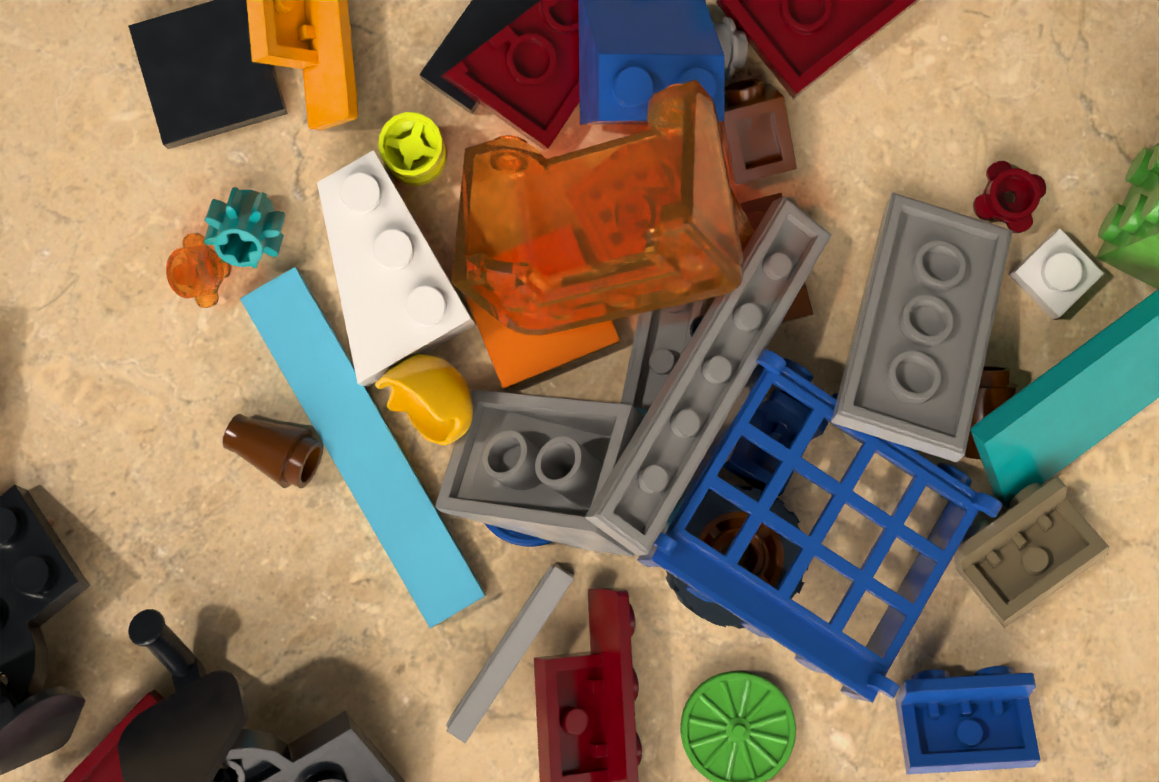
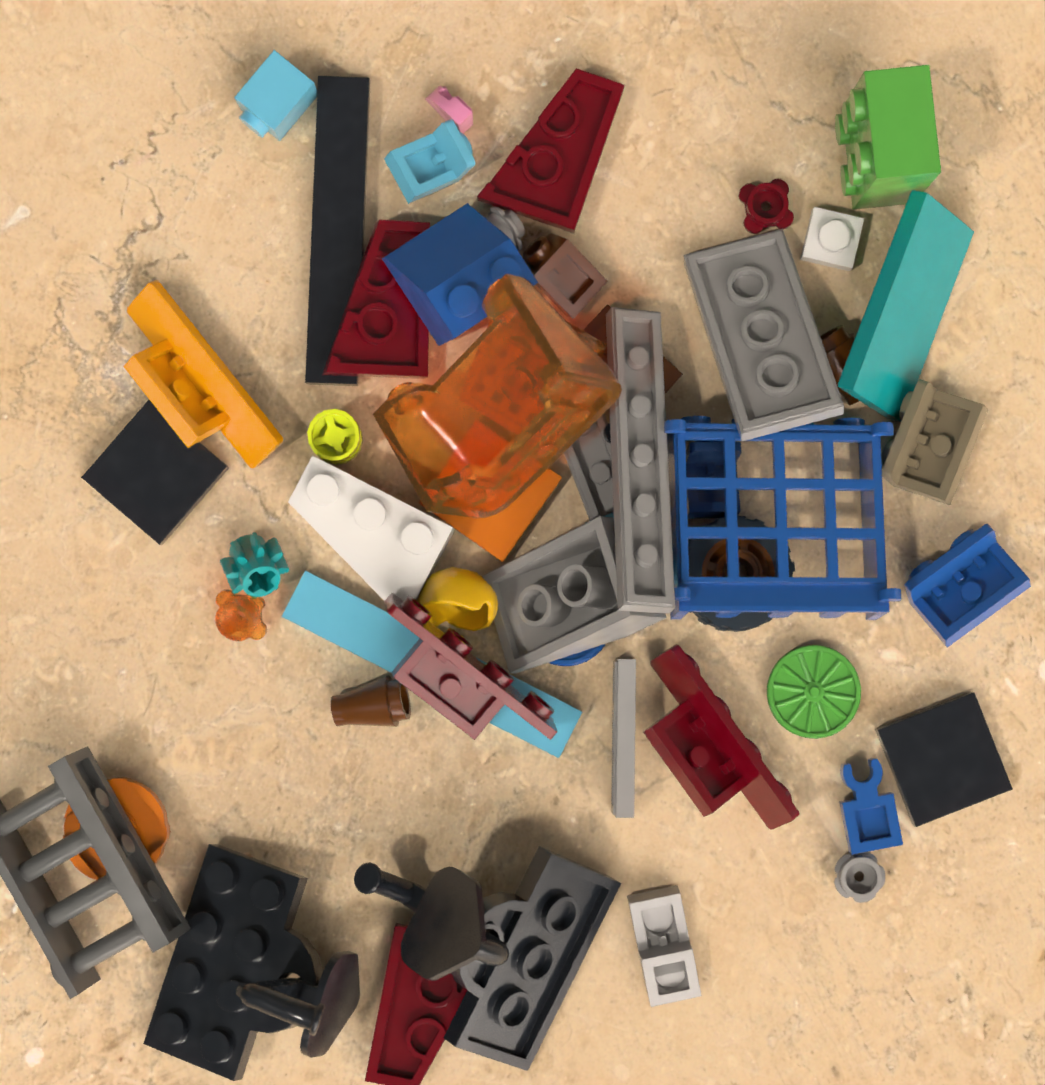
camera: 30 degrees left, 0 degrees up
(371, 481) = (455, 681): none -> bracket

